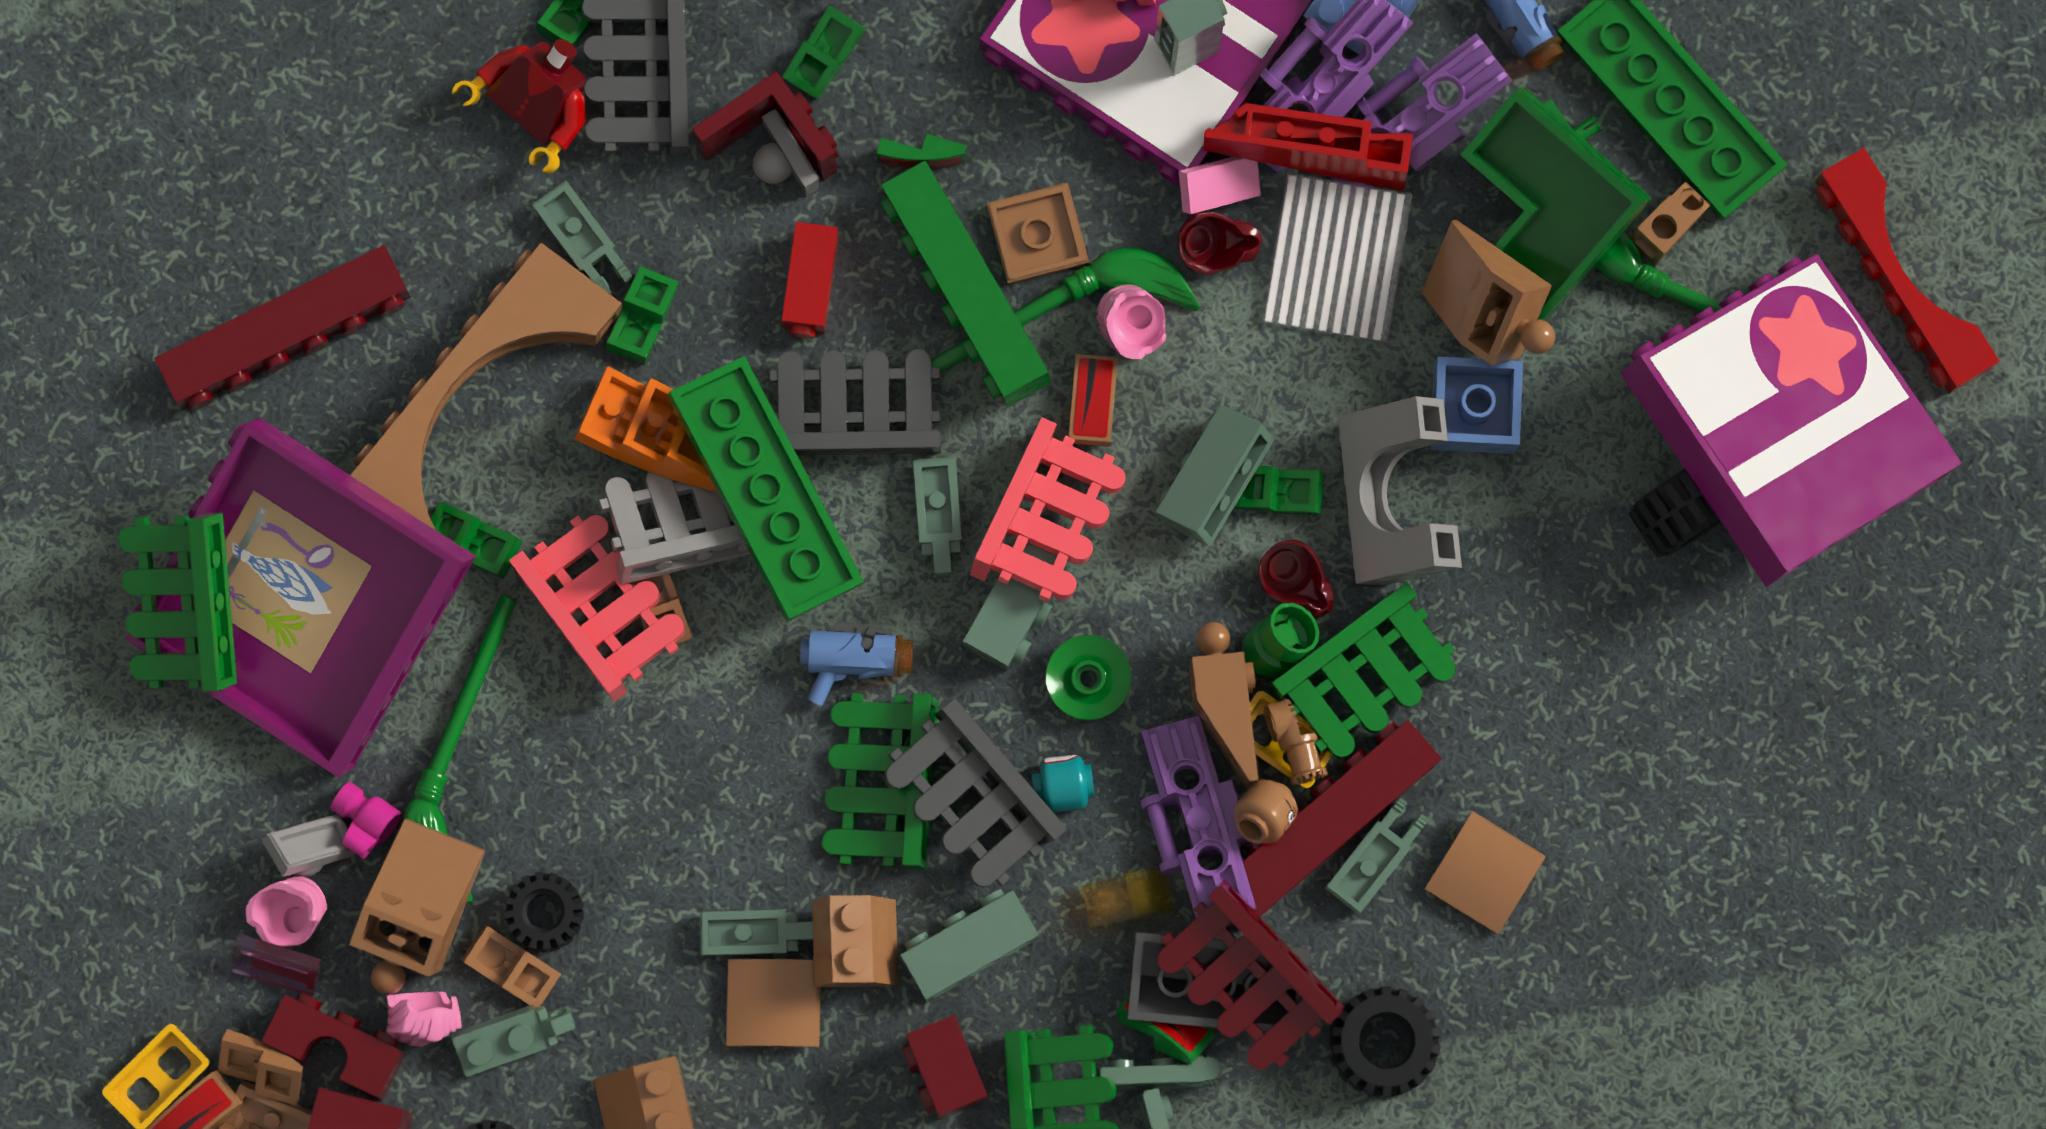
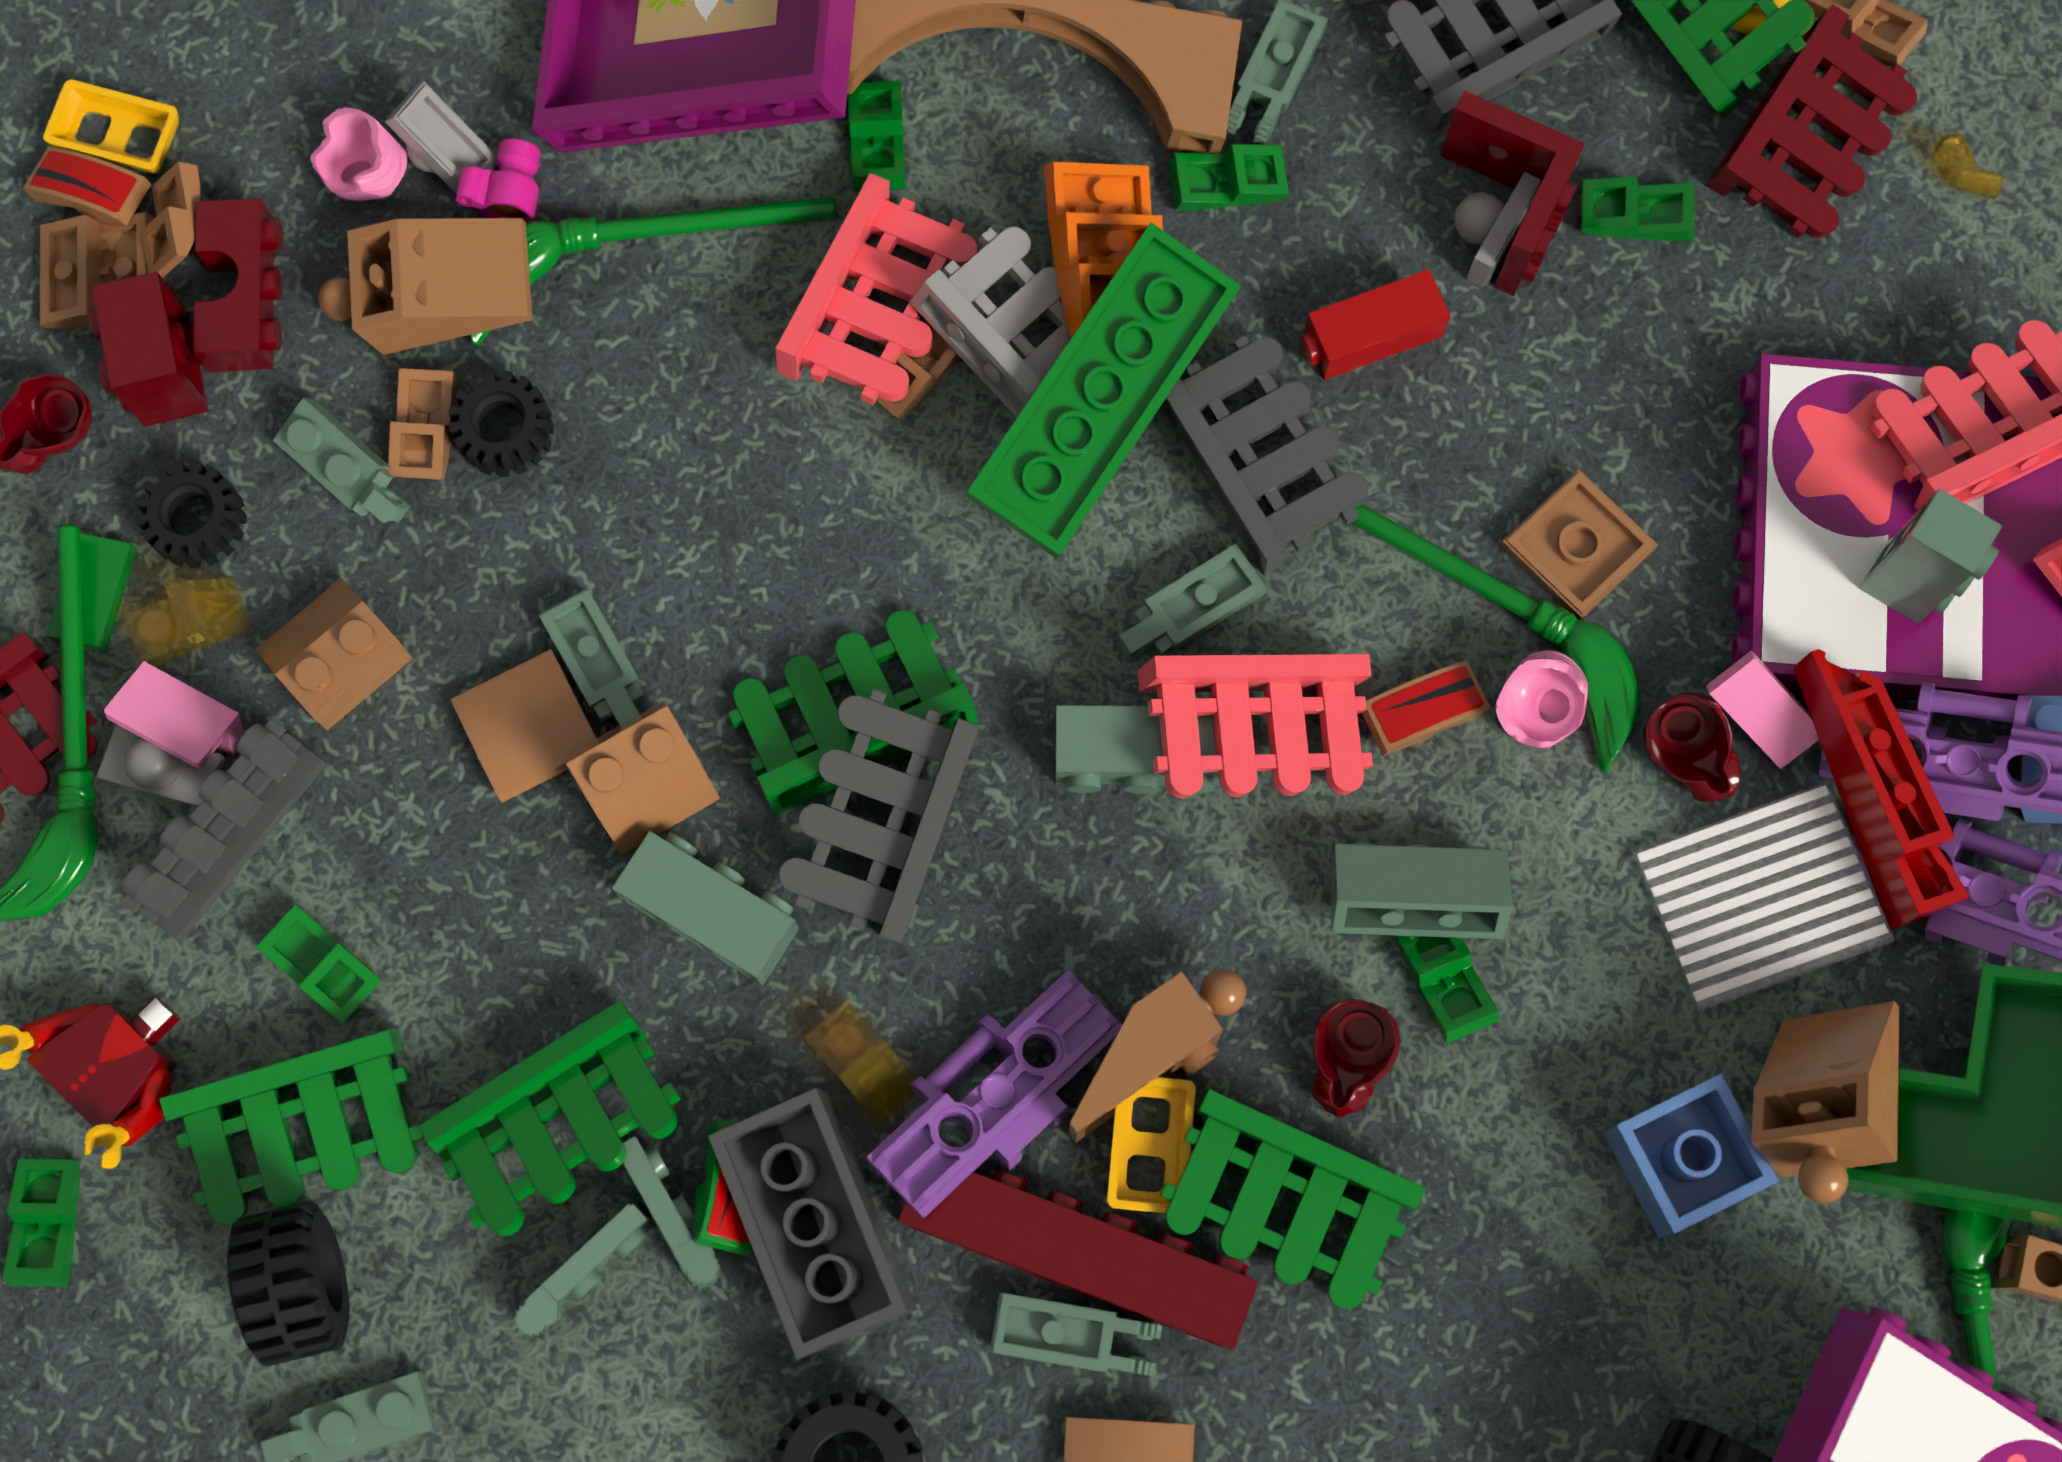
camera: 65 degrees right, 5 degrees down
(276, 965) = (295, 180): tile -> none
(422, 1017) = (313, 353): bright pink hair -> none
(853, 651) = (979, 597): medium blue piece -> none
(935, 150) = (1596, 379): green slope -> none
(945, 1067) = (540, 953): dark red brick -> none
(966, 285) = (1469, 492): green brick -> none
(1064, 783) = (956, 914): teal head -> none
(1084, 655) = (1090, 847): green dish -> none
(1265, 812) = (1045, 1164): medium nougat head -> none
(1271, 984) = (860, 1294): dark red fence -> none
(1280, 640) = (1268, 1073): green wheel -> none
(1299, 748) = (1146, 1166): medium nougat connector -> none
(1370, 448) = (1560, 1058): light grey arch -> none

